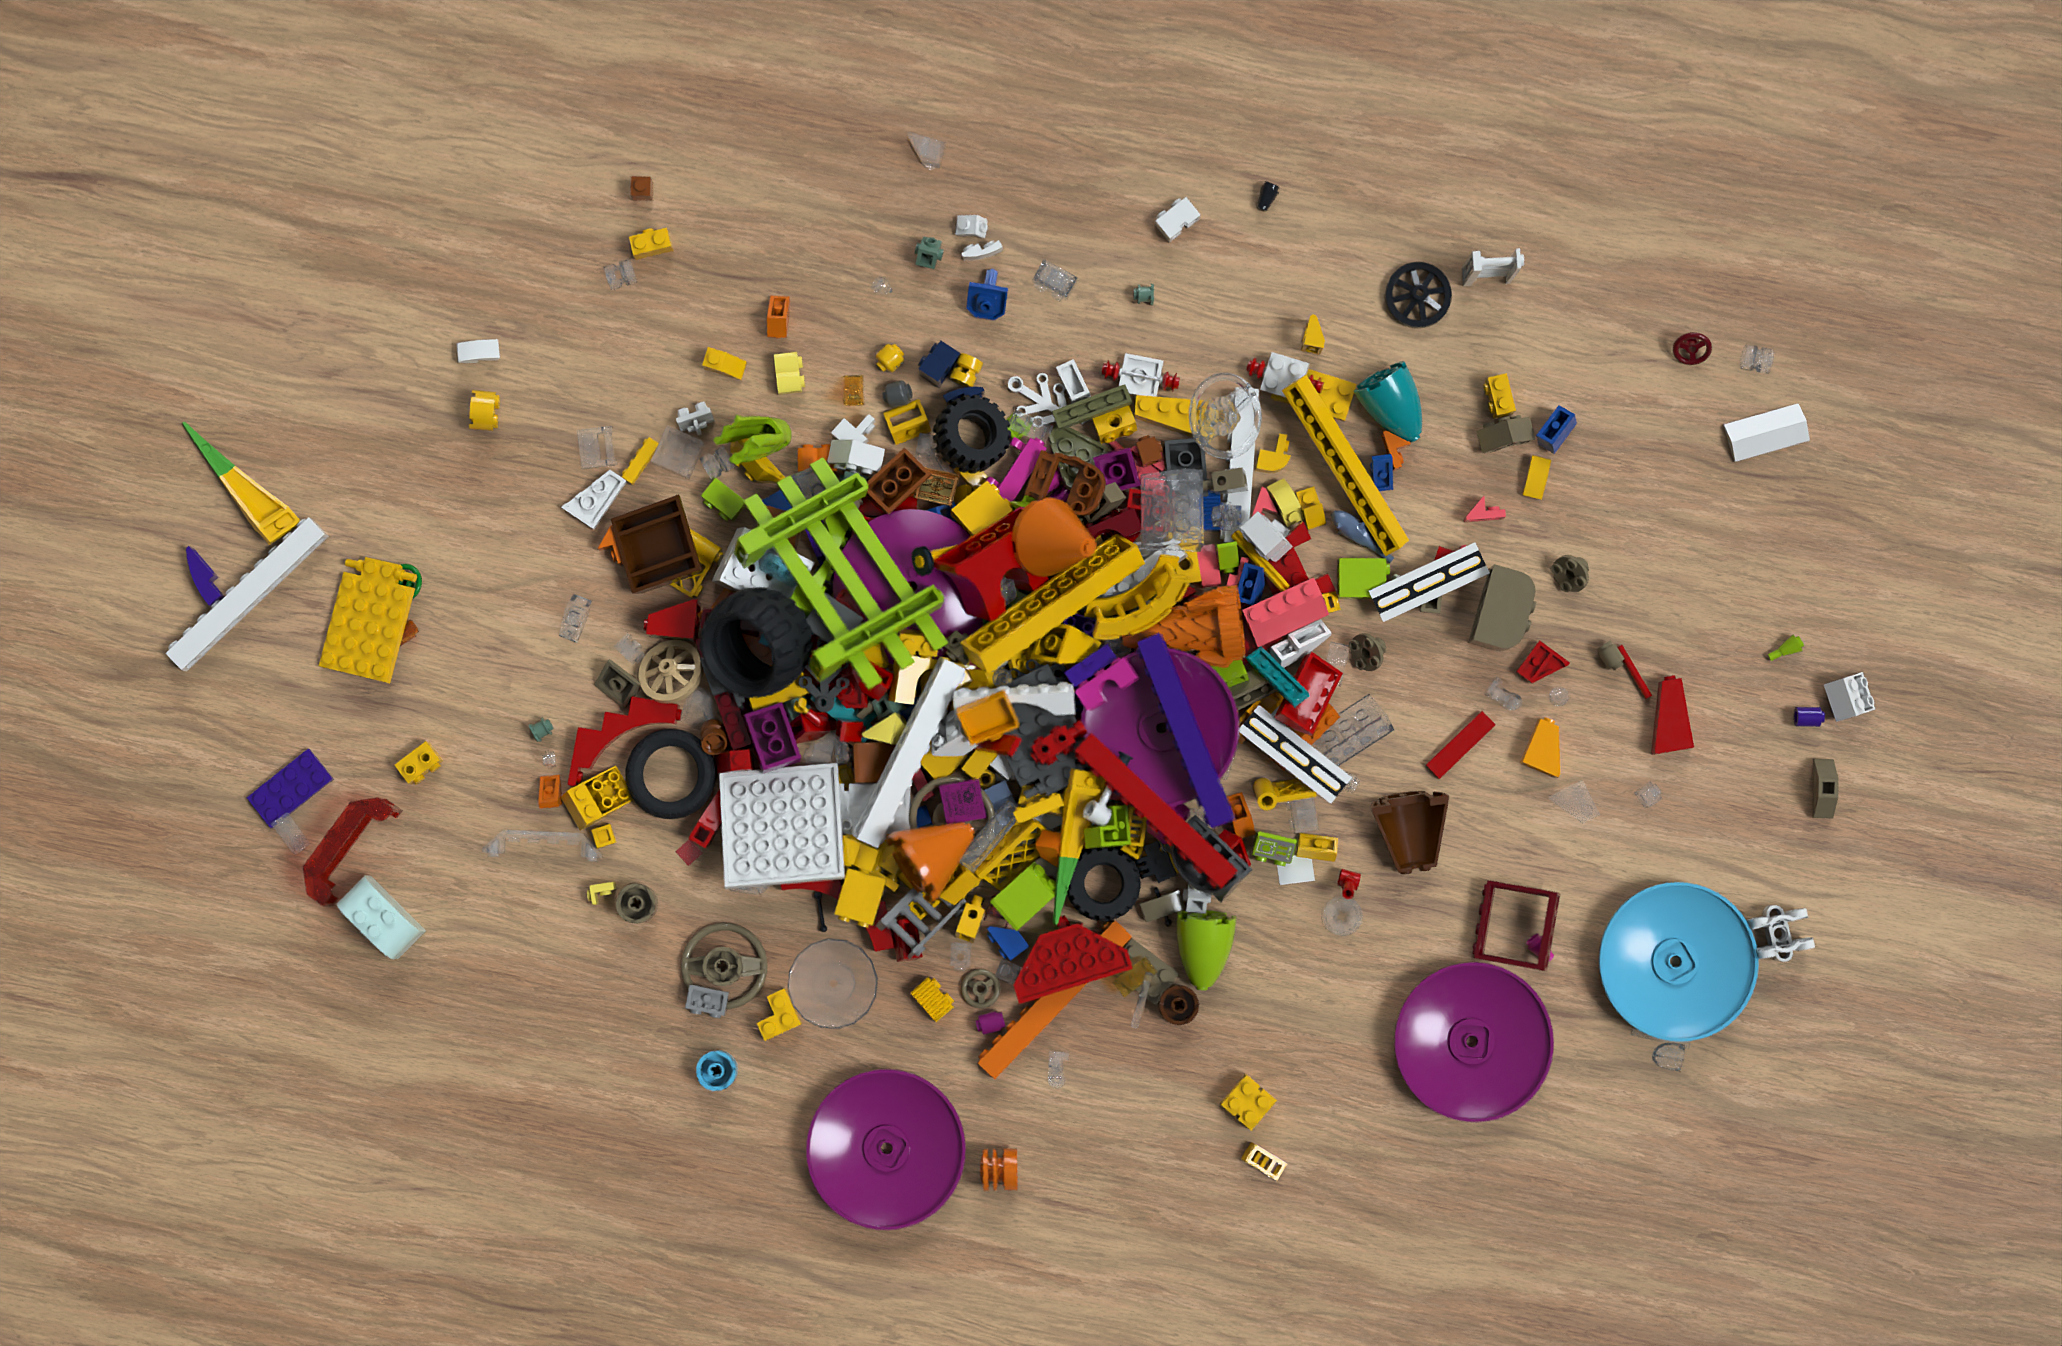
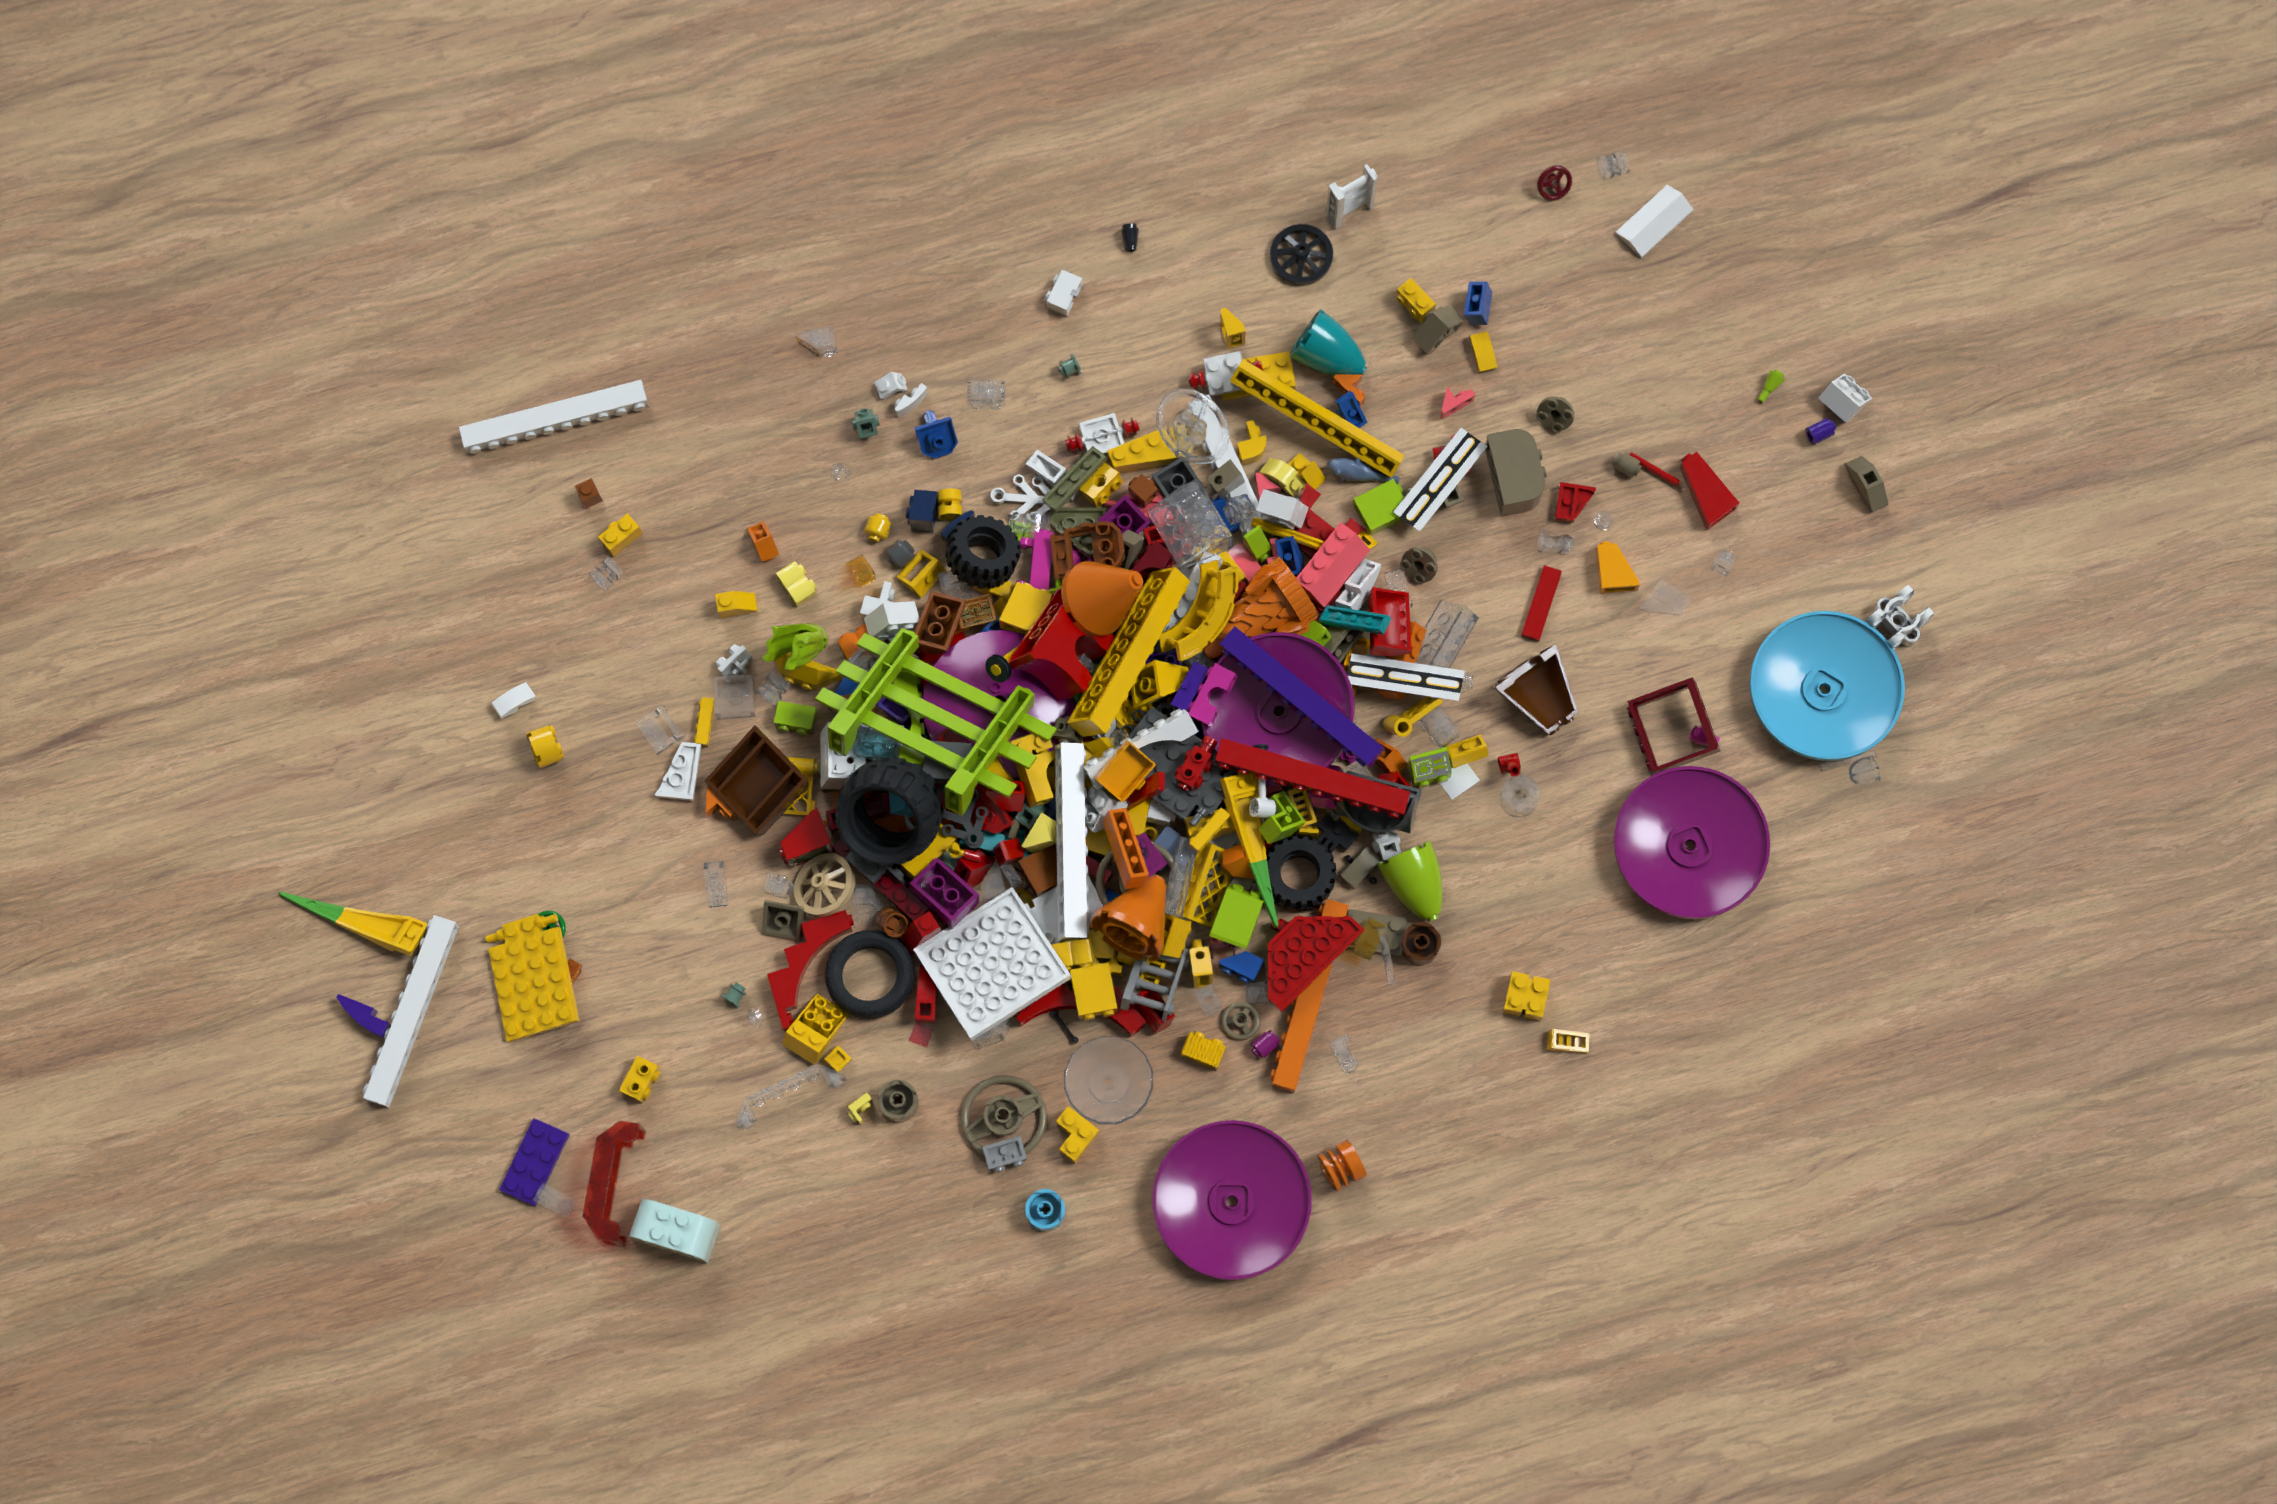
camera: 25 degrees left, 10 degrees down
(550, 791) = (770, 1044): orange slope -> none
(646, 97) = (553, 417): none -> white brick
(952, 788) = (1125, 848): none -> orange brick

